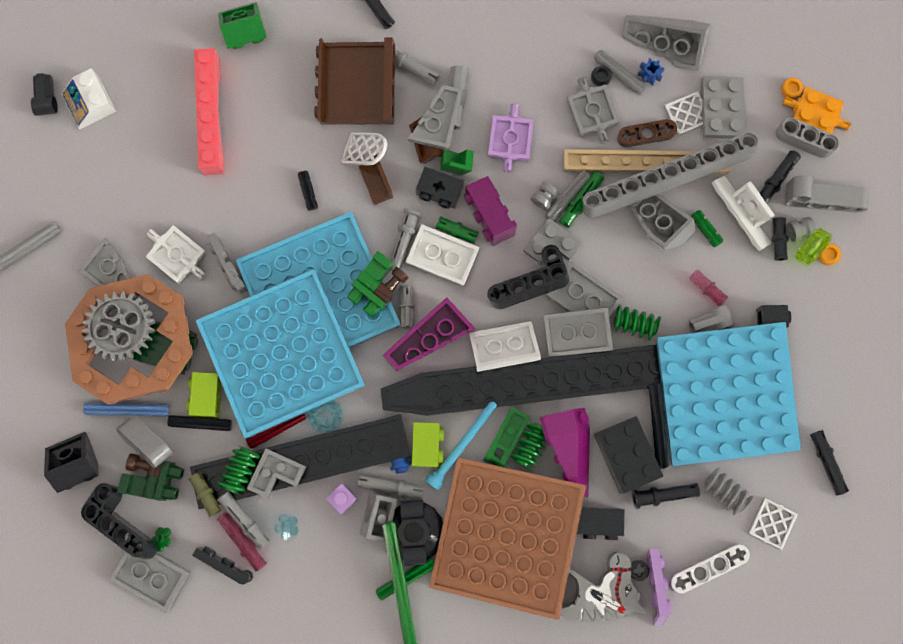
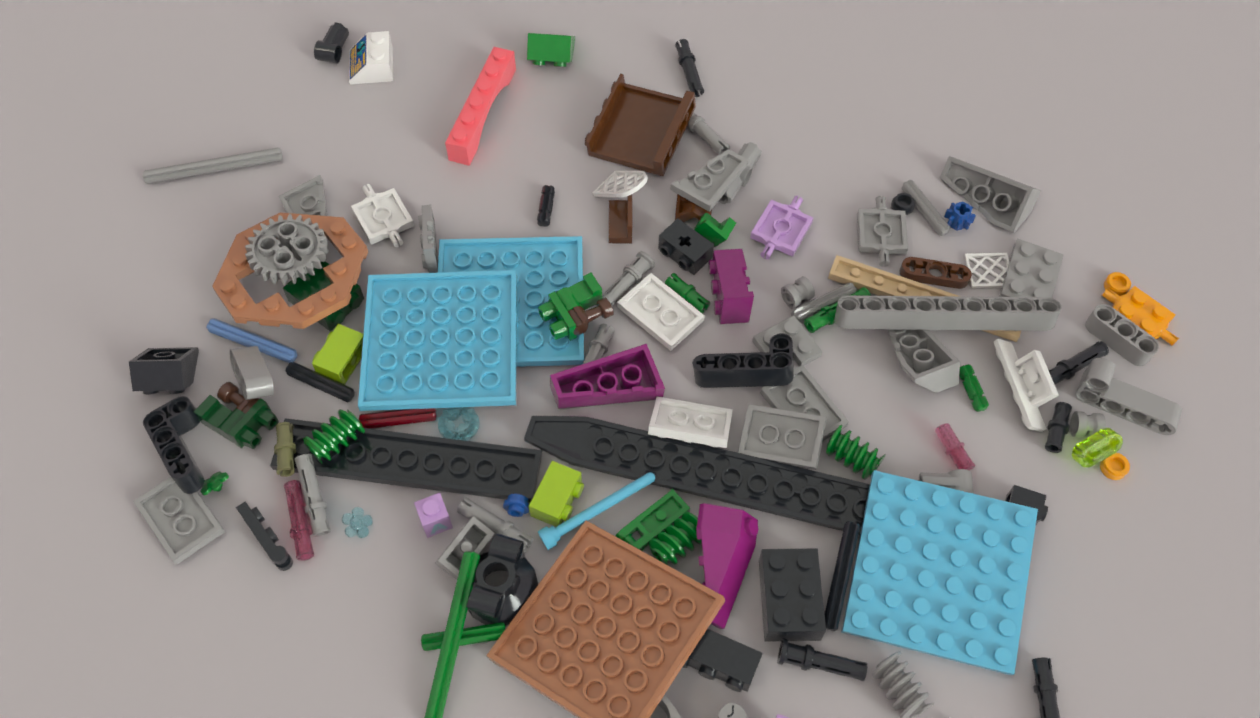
camera: 20 degrees right, 20 degrees down
(272, 467) = (370, 449): light grey plate -> none

